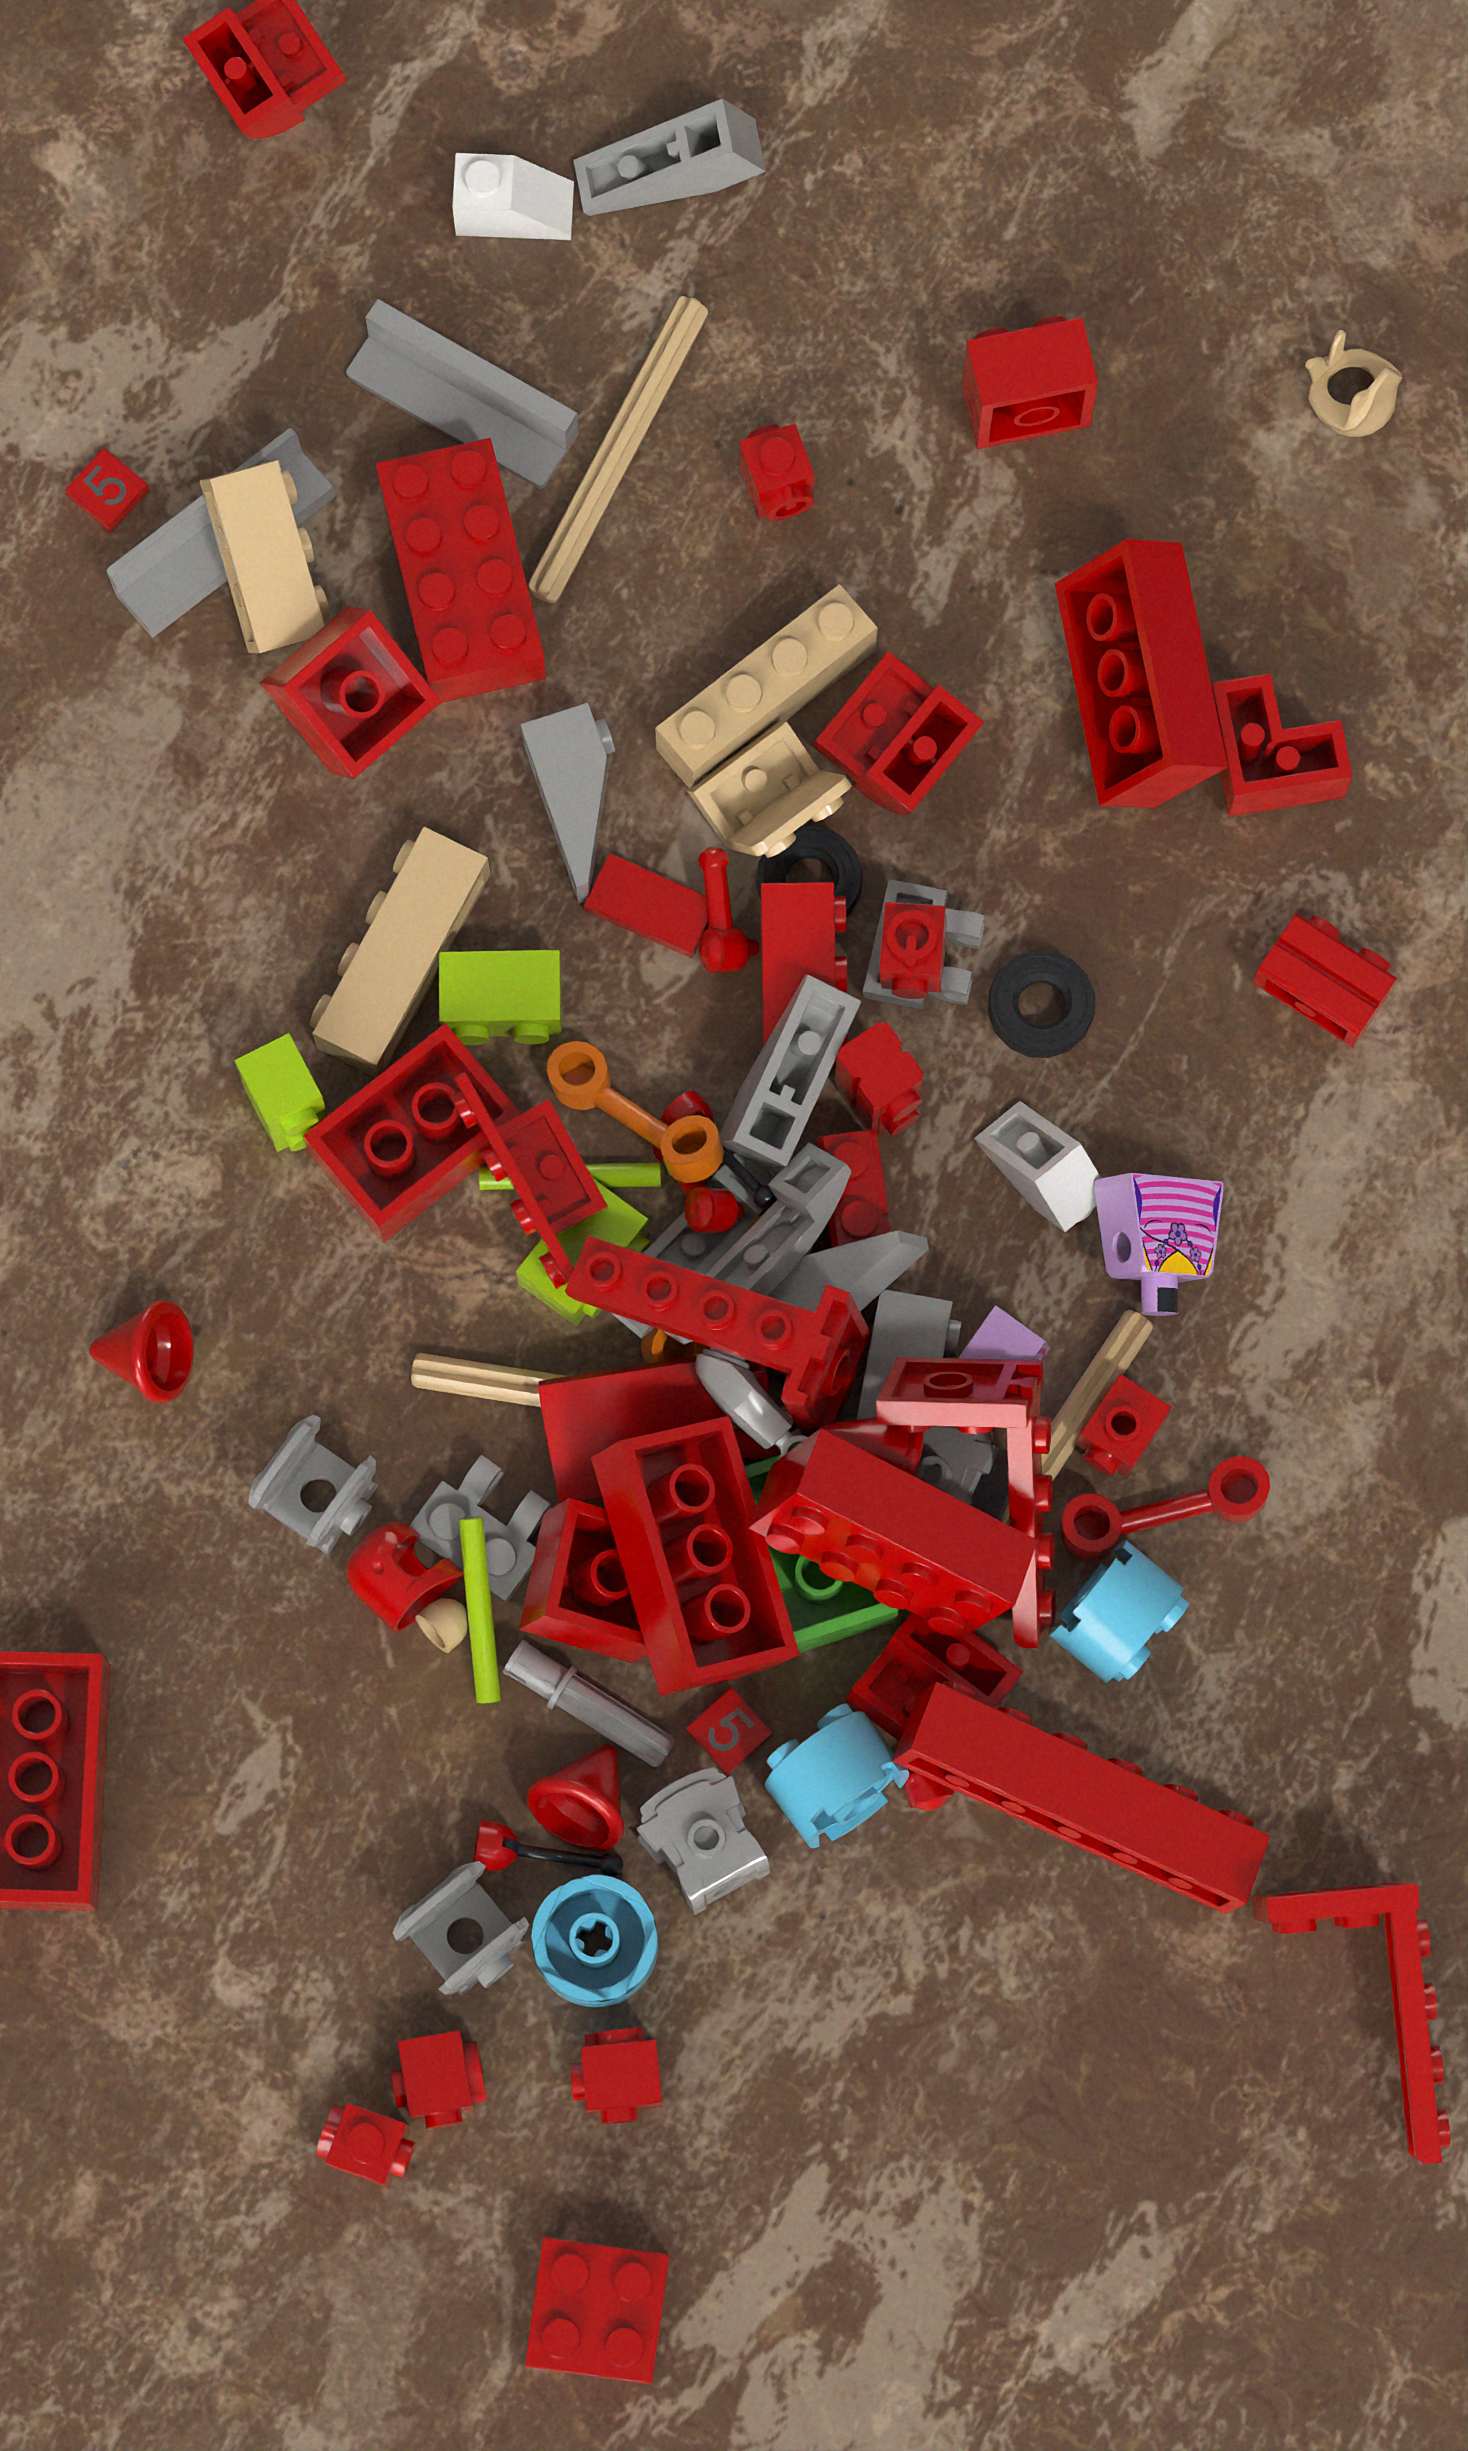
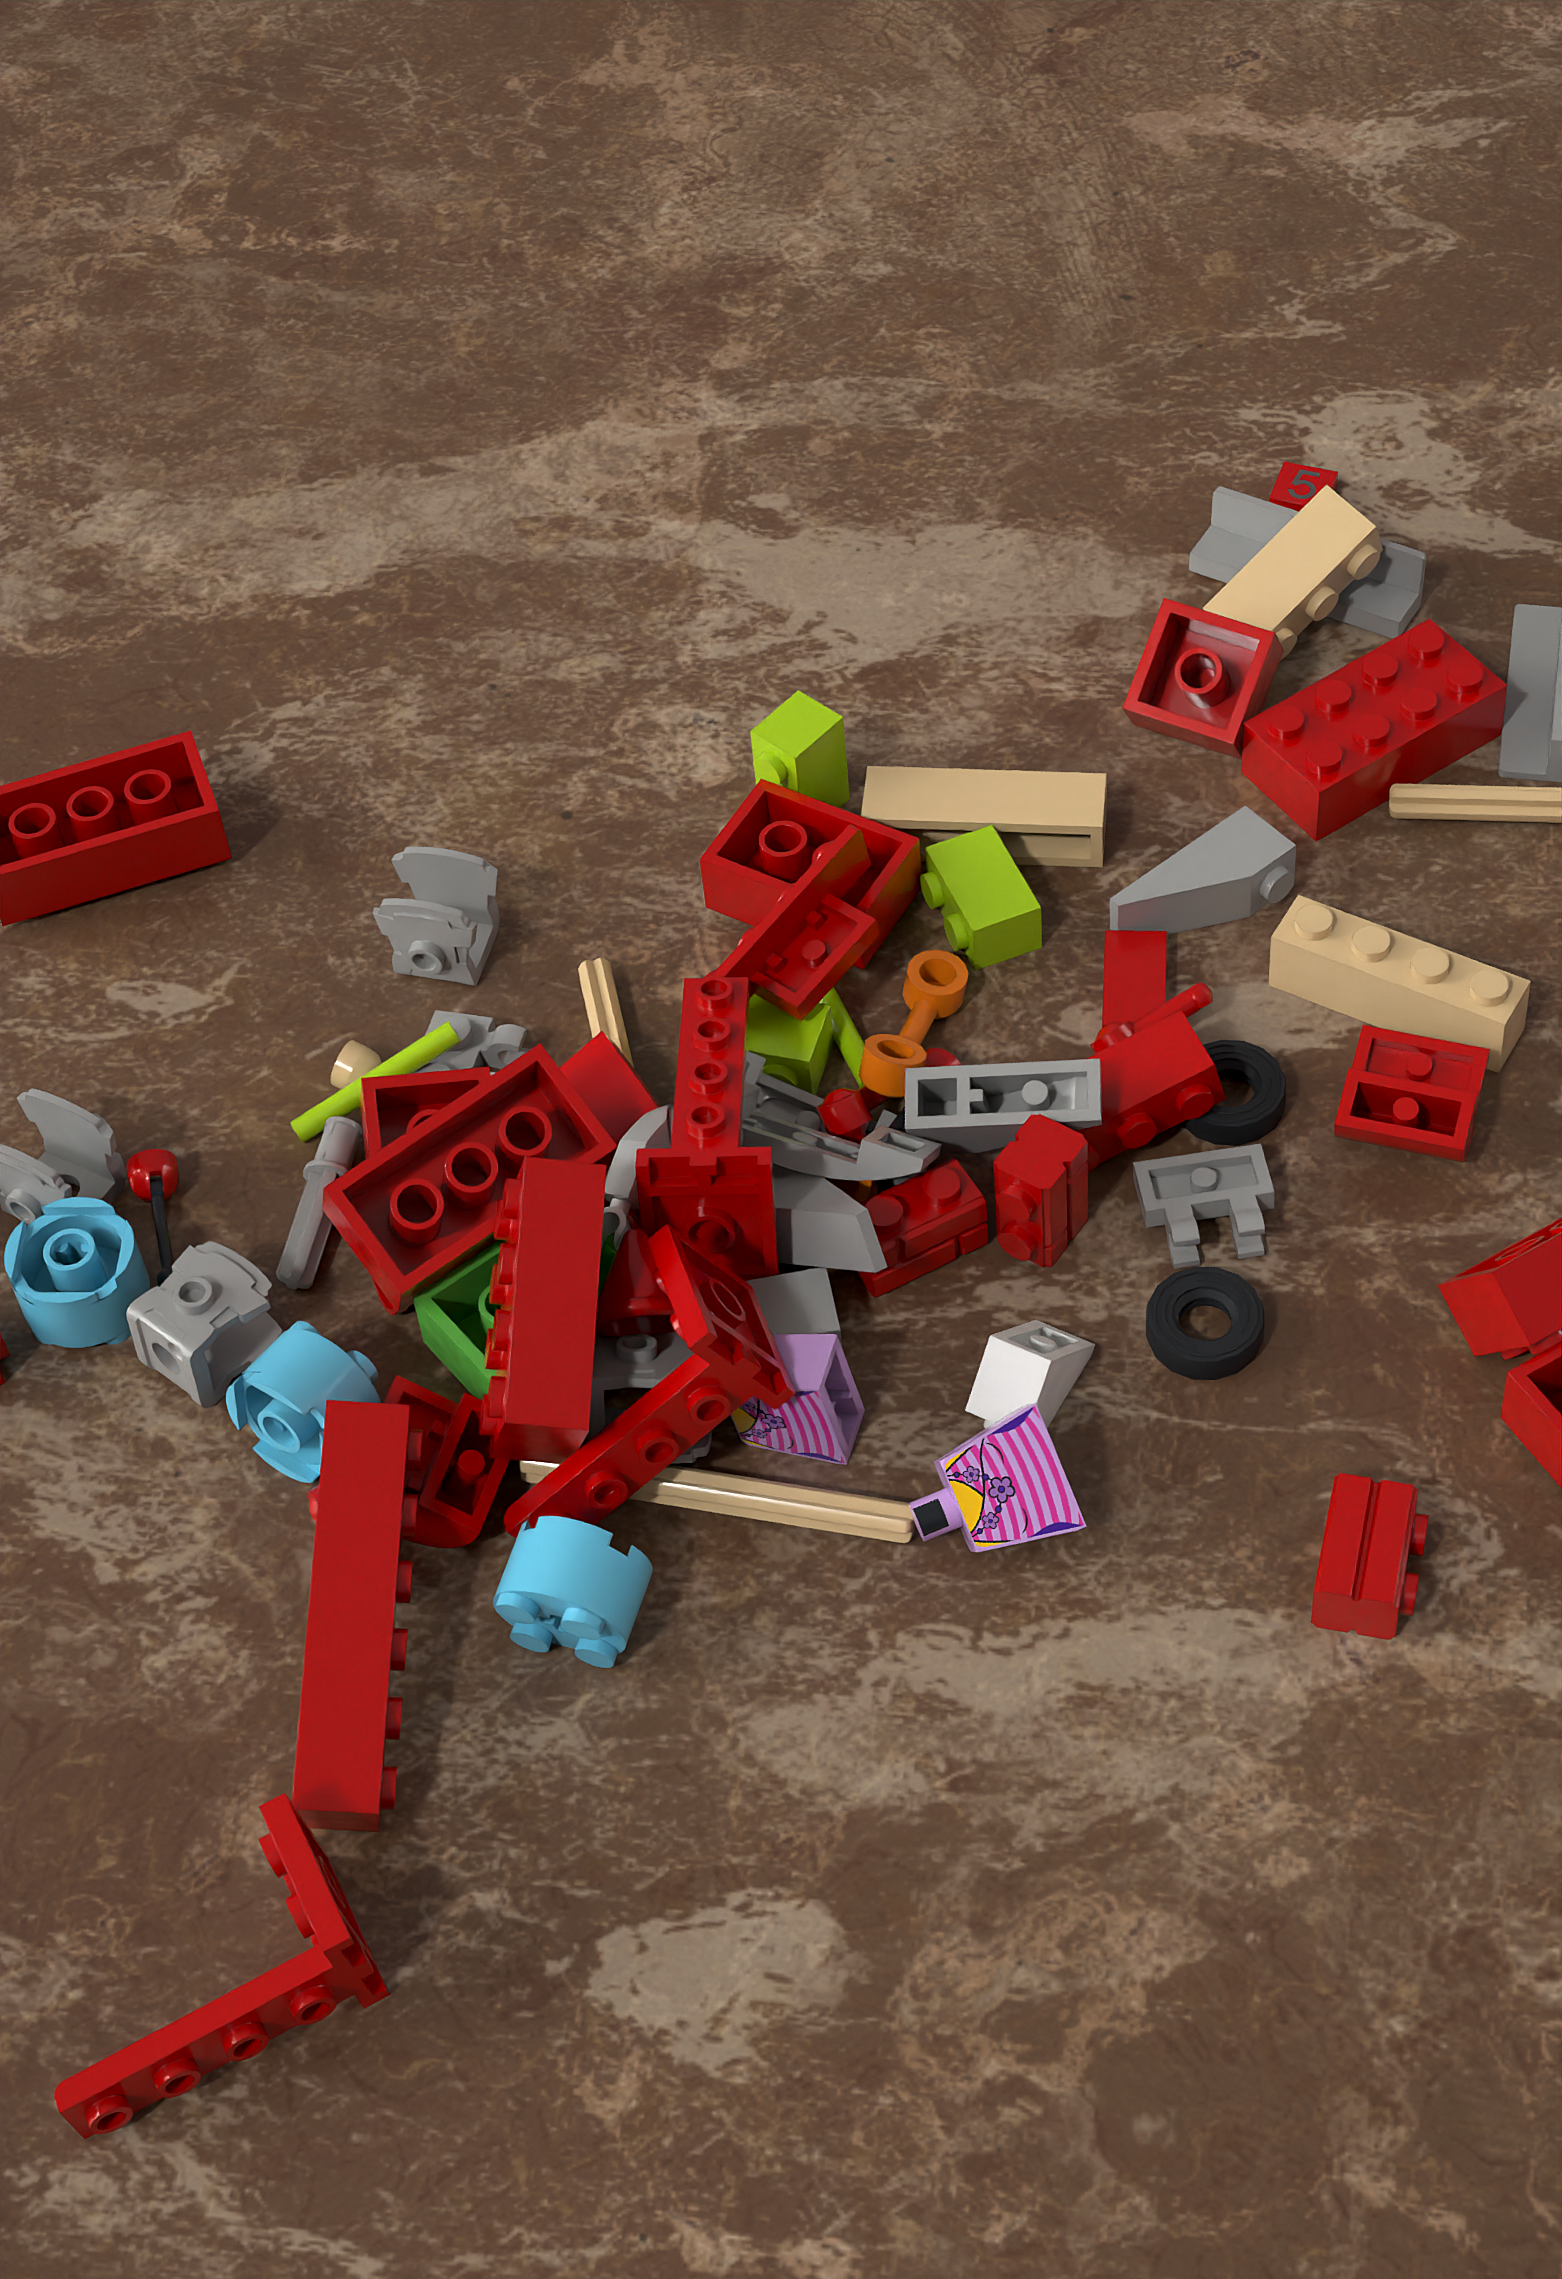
camera: 75 degrees right, 25 degrees down
(150, 1351) = (544, 782): red hat -> none
(392, 1578) = (384, 1001): red helmet -> none
(581, 1801) = (229, 1217): red hat -> none
(729, 1731) = (341, 1318): red tile -> none
(767, 793) = (1293, 1013): tan bracket -> none
(913, 949) = (1186, 1160): red brick -> none
(1122, 1428) = (777, 1532): red brick -> none
(1234, 1493) = (758, 1668): red piece -> none

